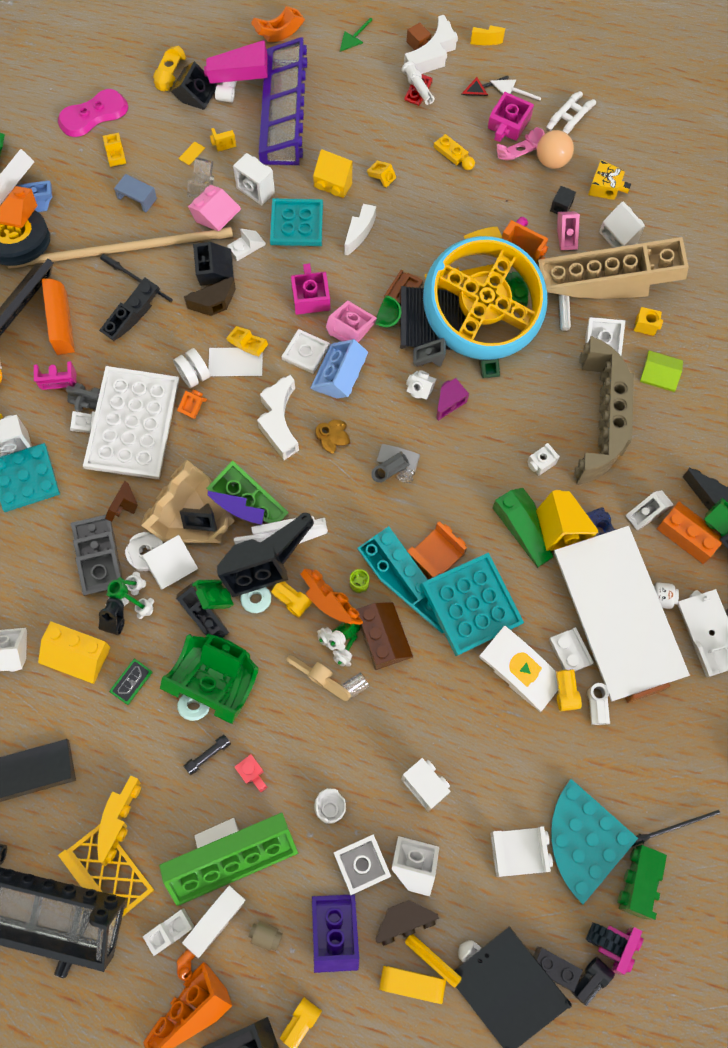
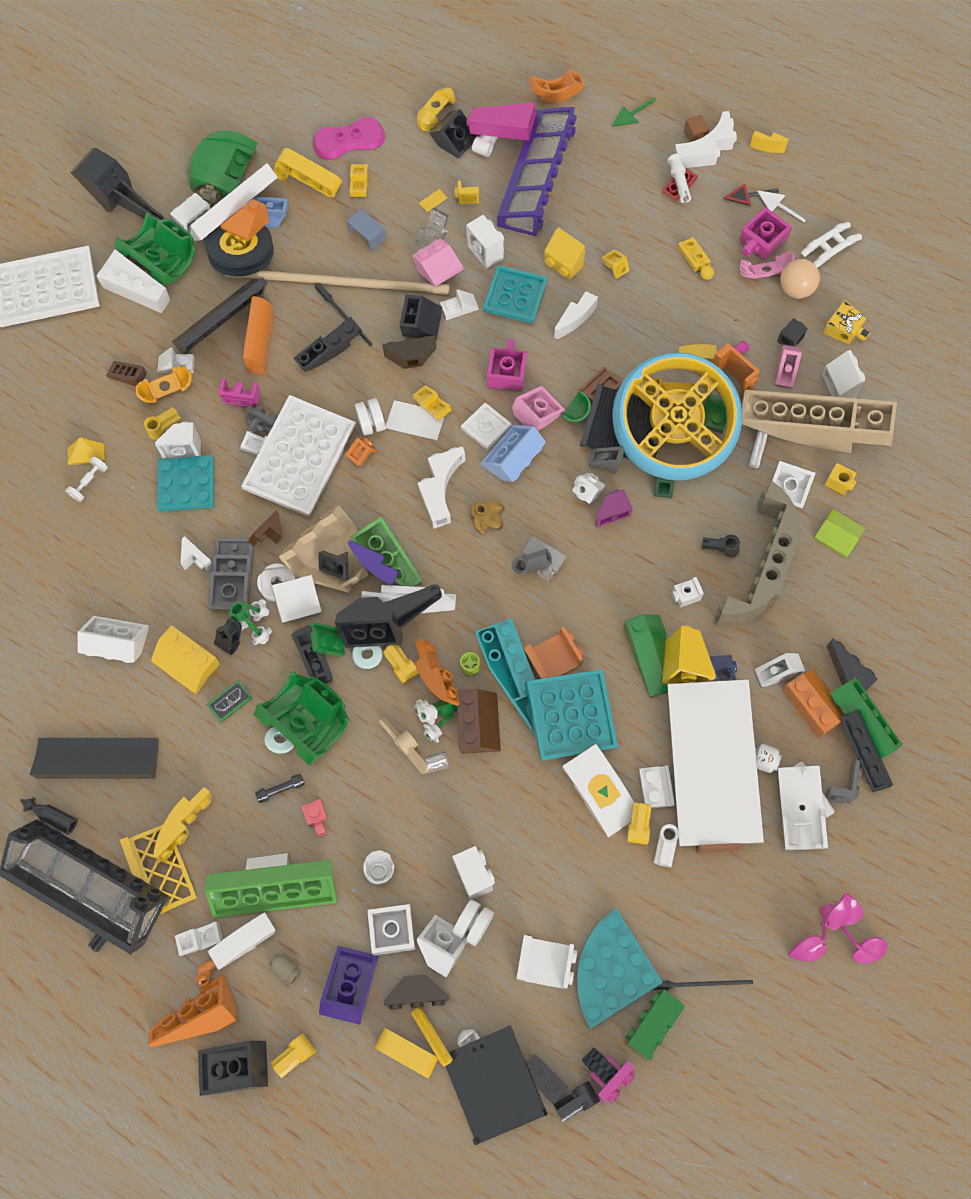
camera: 20 degrees right, 0 degrees up
(50, 545) = (191, 554): none -> white slope
(62, 151) = (307, 172): none -> yellow beam
(440, 833) = (473, 922): none -> white wheel
(559, 407) = (721, 545): none -> black pin

